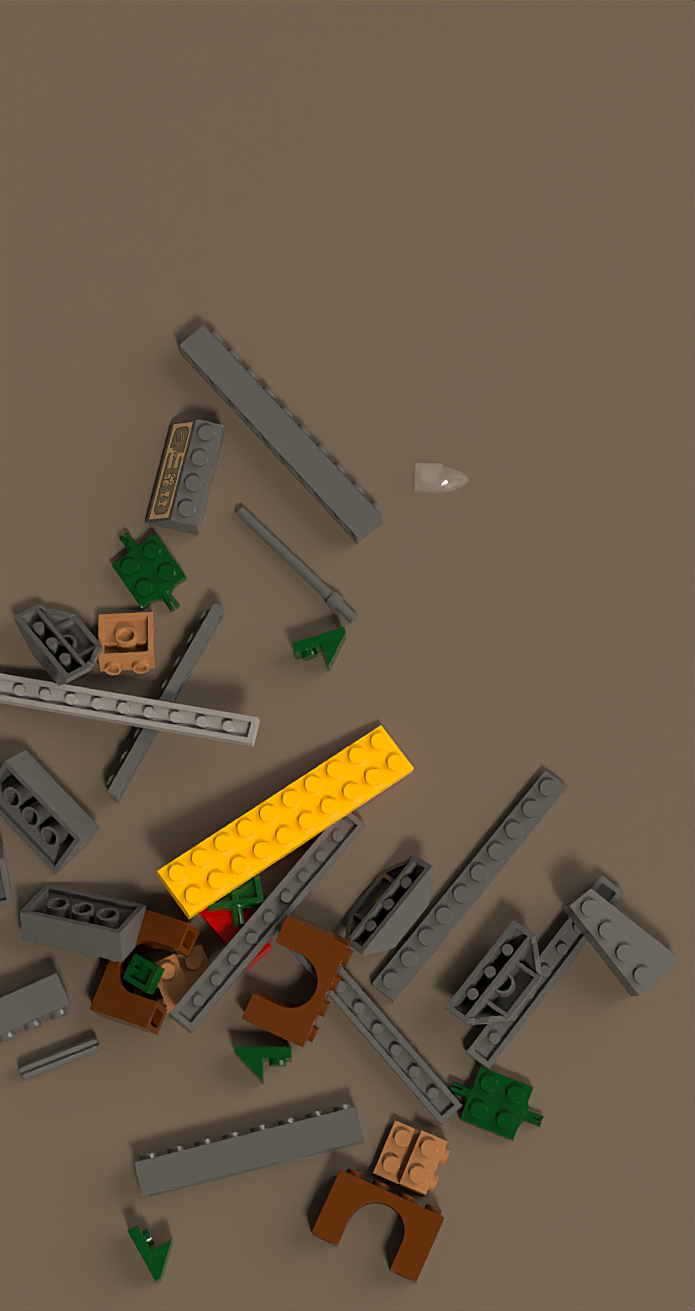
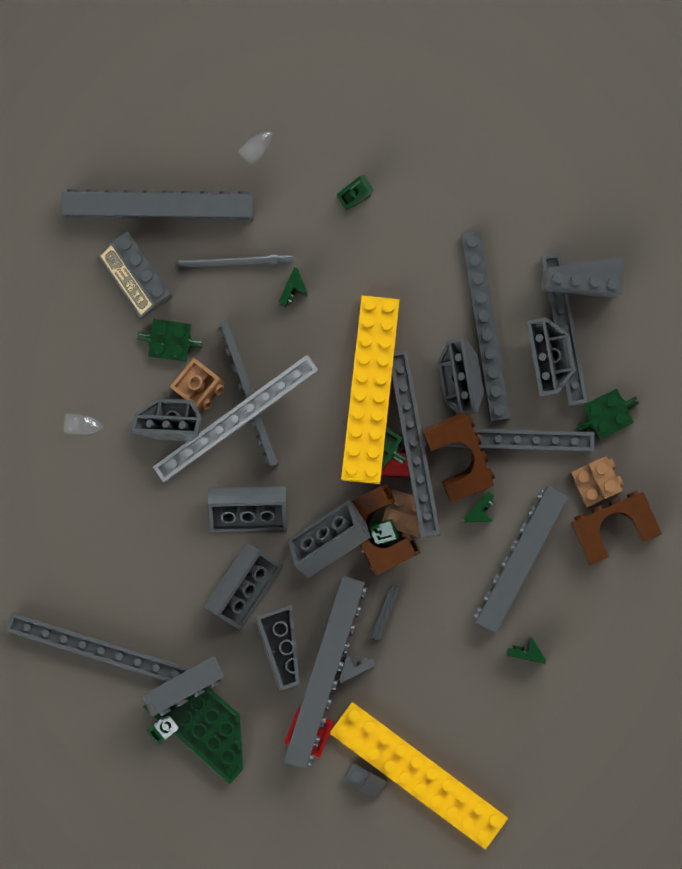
camera: 50 degrees left, 10 degrees up
(484, 620) = (355, 192): none -> dark green slope

